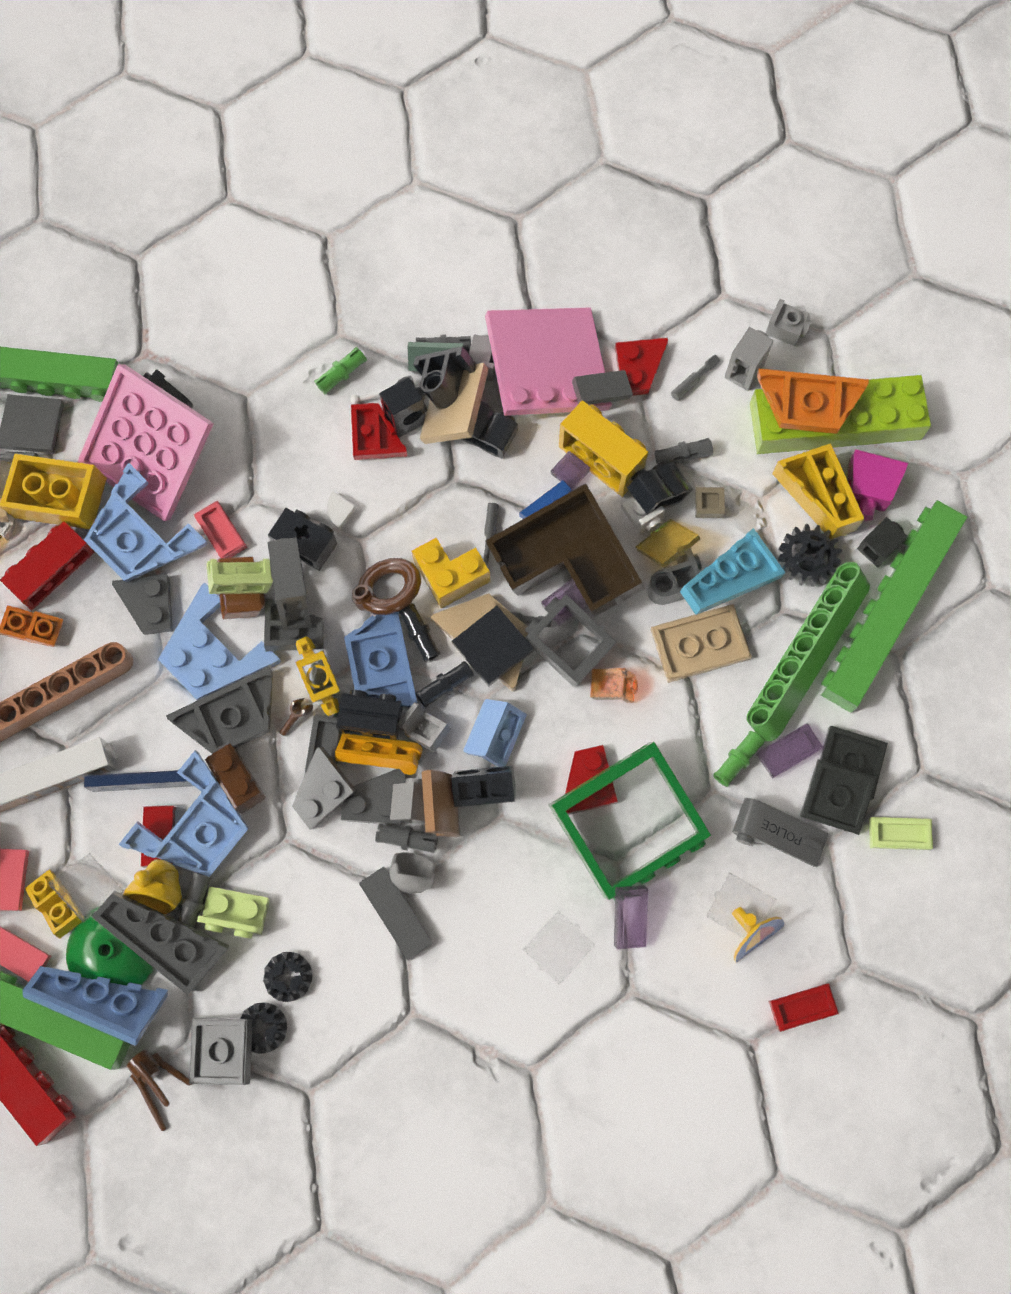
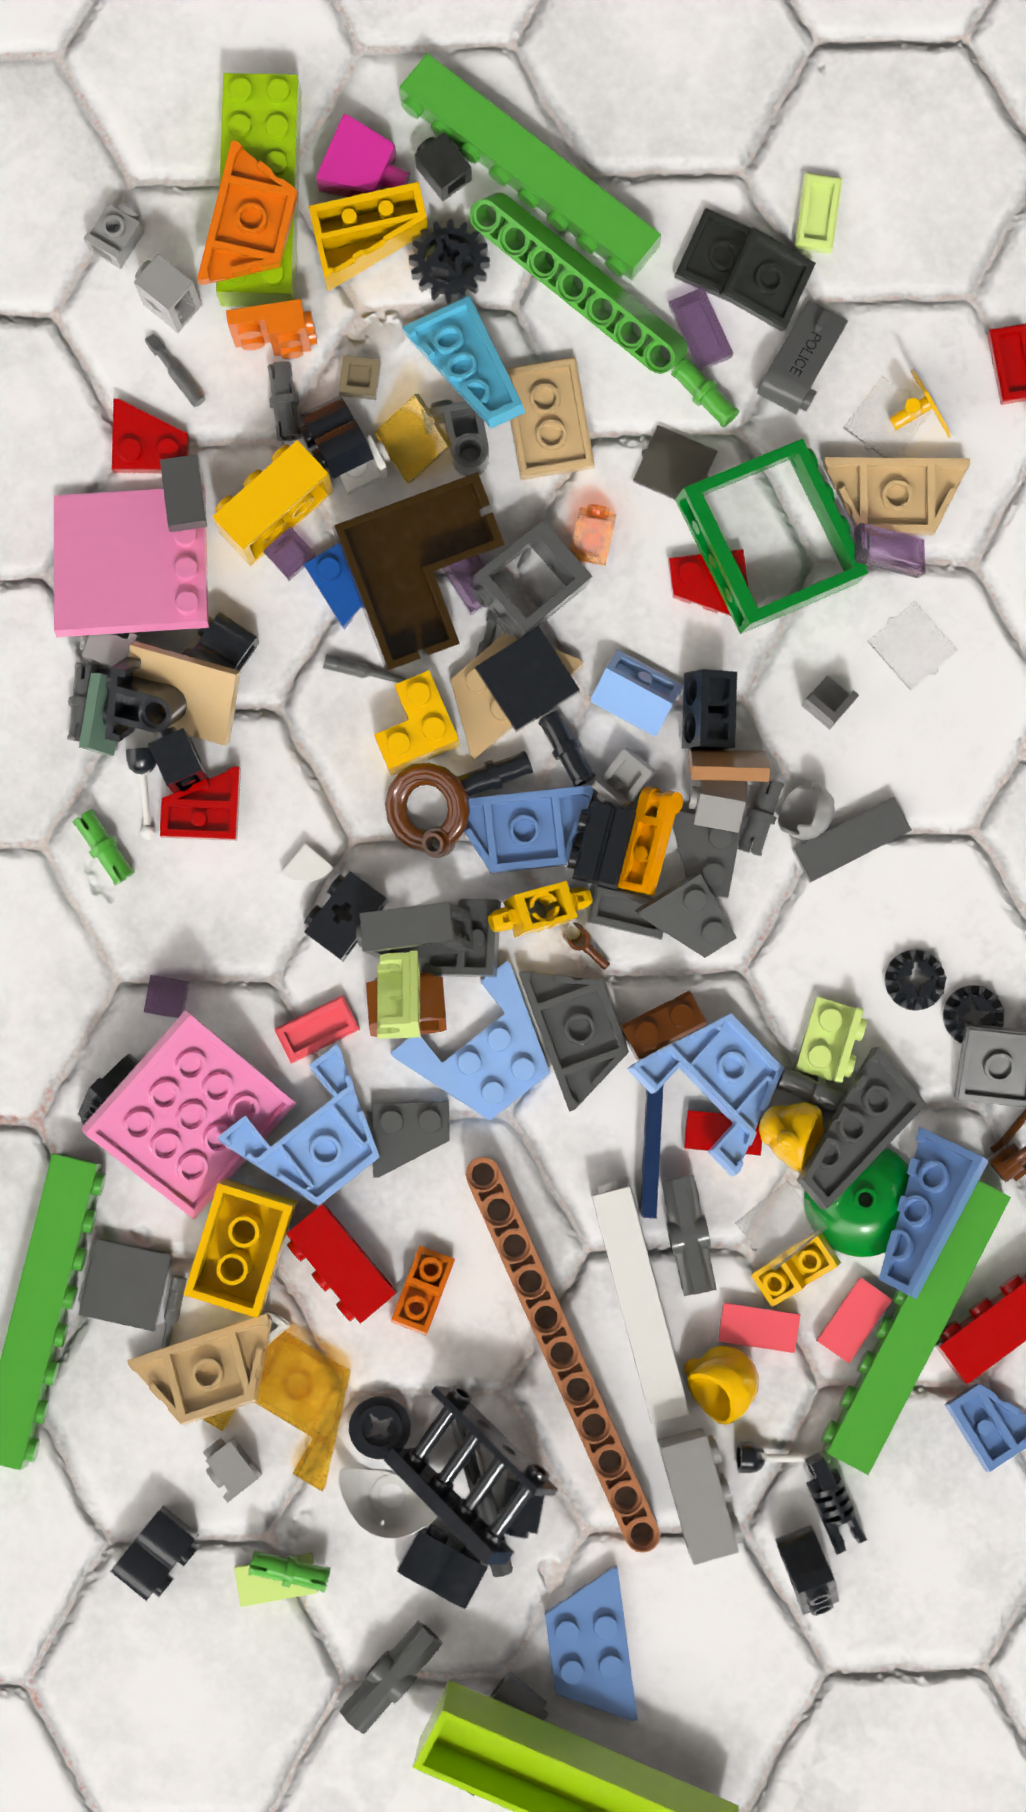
camera: 85 degrees left, 10 degrees up
(76, 816) = (688, 1235): none -> dark grey piece
(237, 426) = (166, 996): none -> clear purple tile
(503, 882) = (829, 702): none -> flat silver panel
(680, 742) = (673, 463): none -> clear smoke piece
(680, 920) = (896, 492): none -> tan wing
(736, 434) = (279, 323): none -> orange plate

